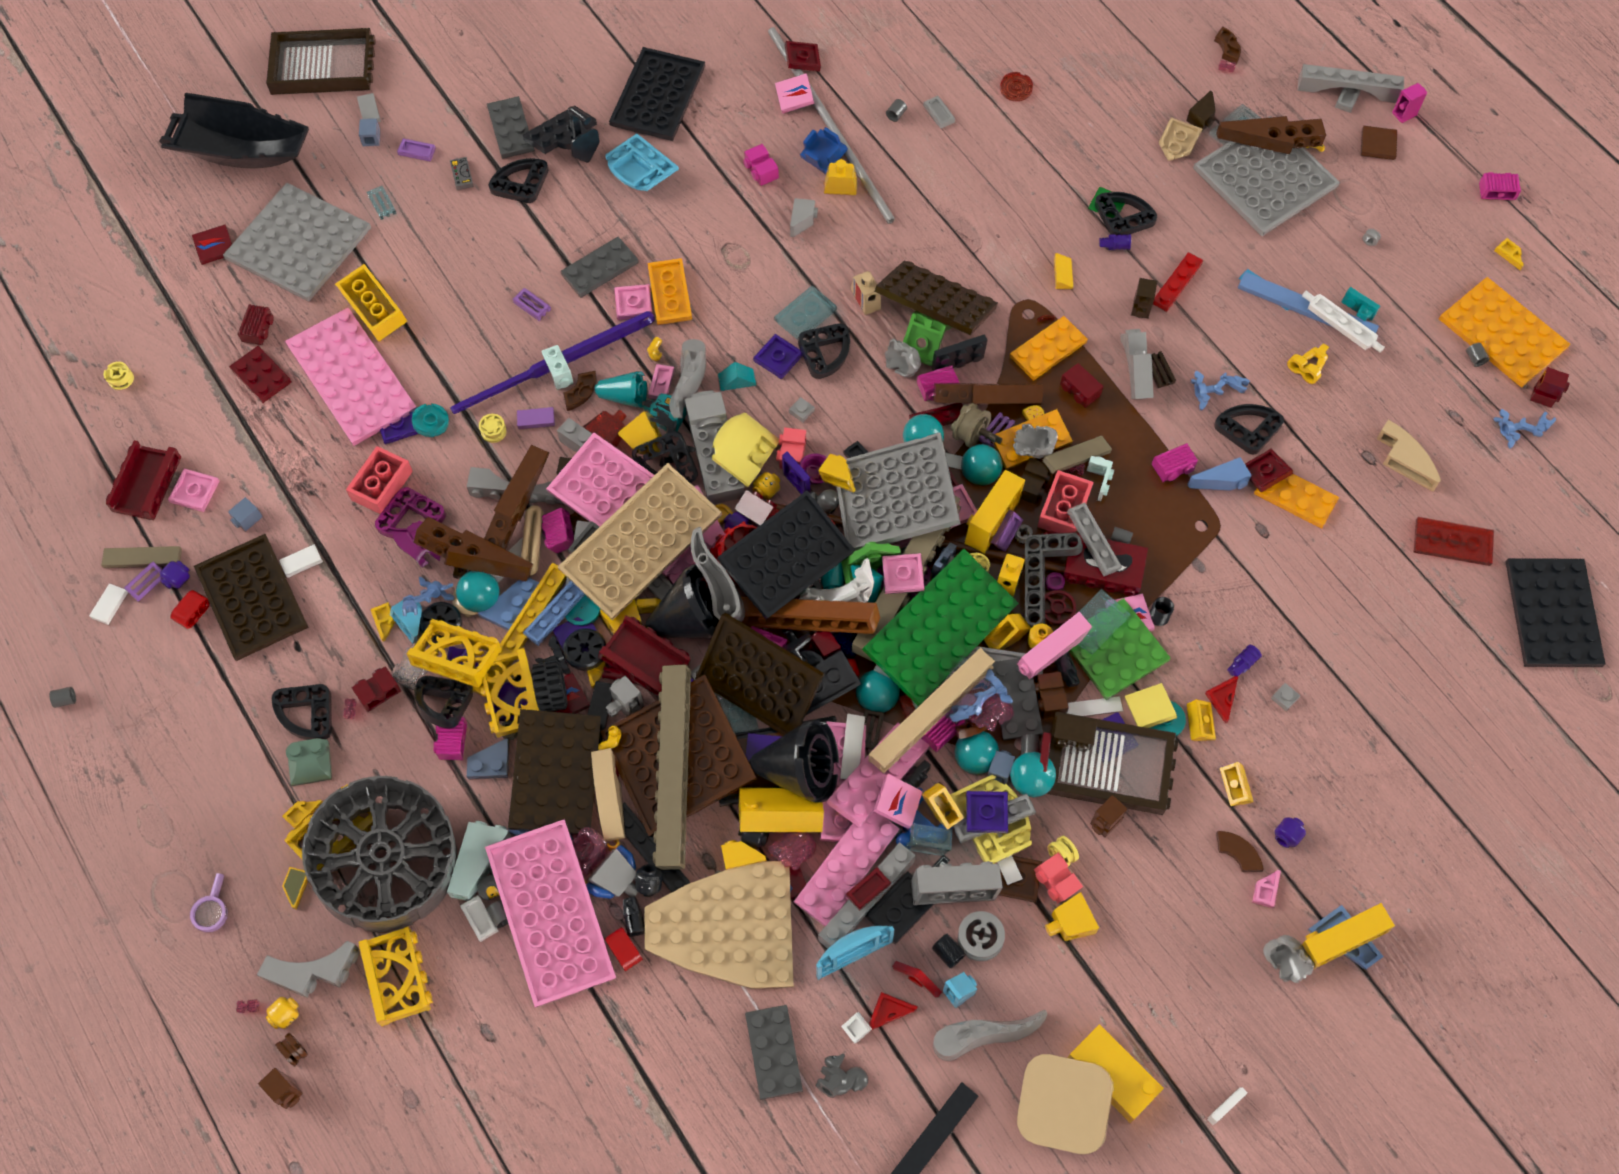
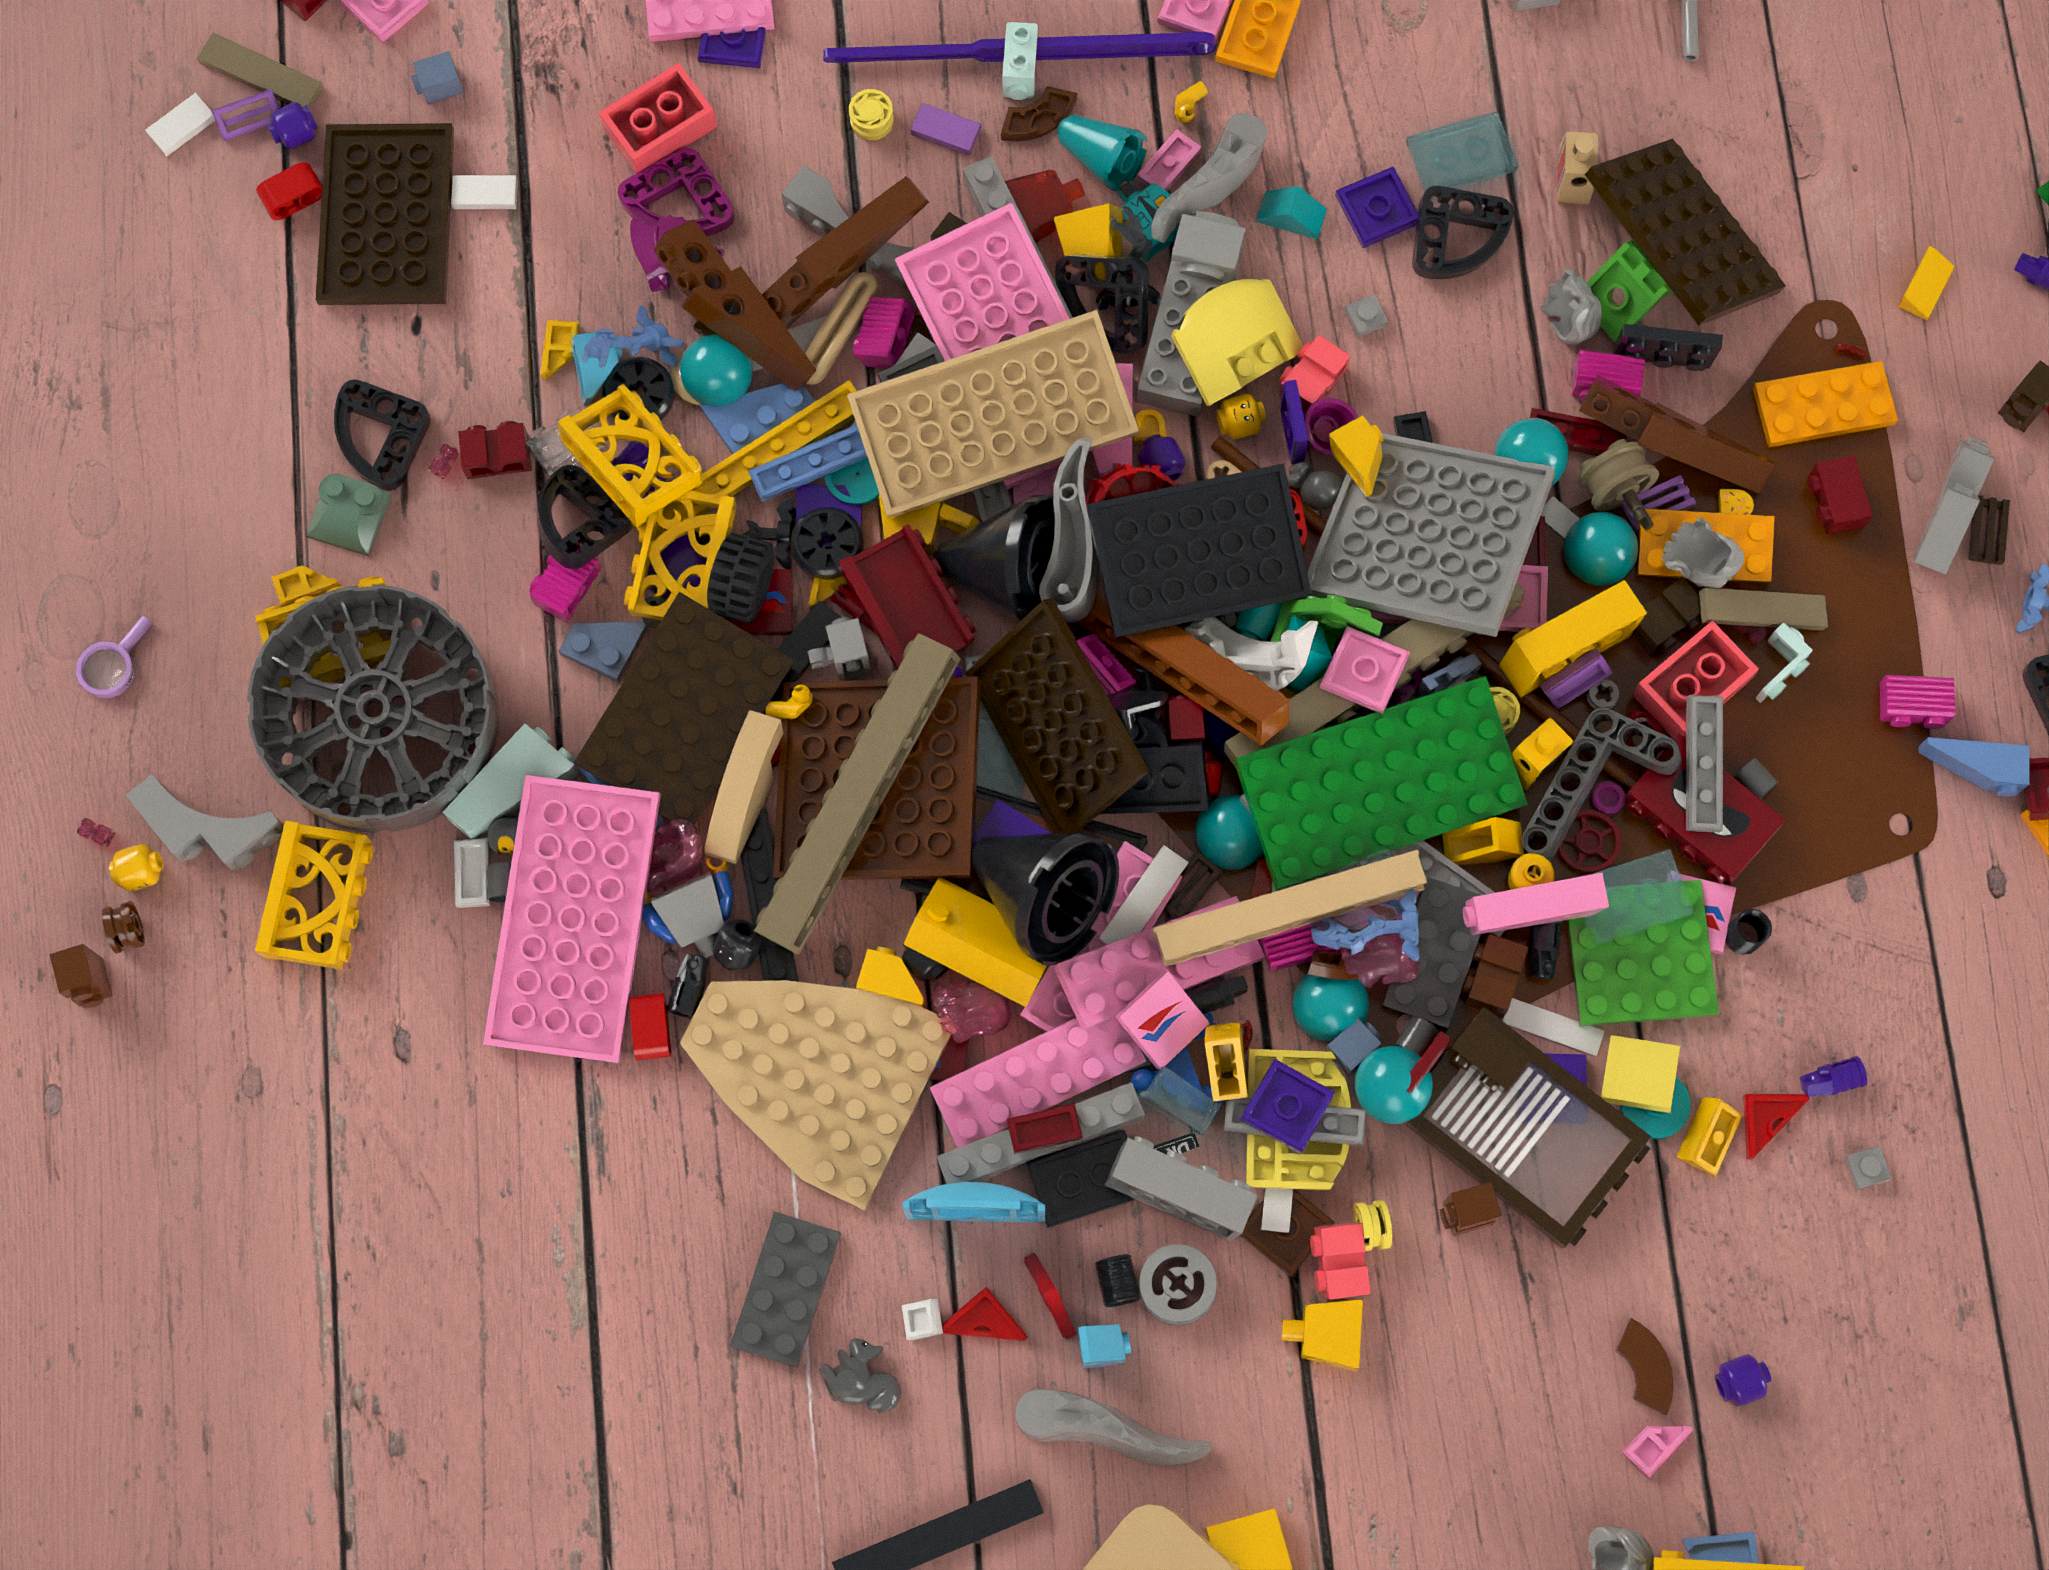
camera: 30 degrees right, 10 degrees up
(62, 697) = (52, 239): dark grey beam -> none
(294, 886) = (236, 692): olive tile -> none
(430, 420) = (784, 55): teal tile -> none
(755, 508) = (1202, 447): brick -> none
(1236, 784) = (1706, 1263): yellow slope -> none

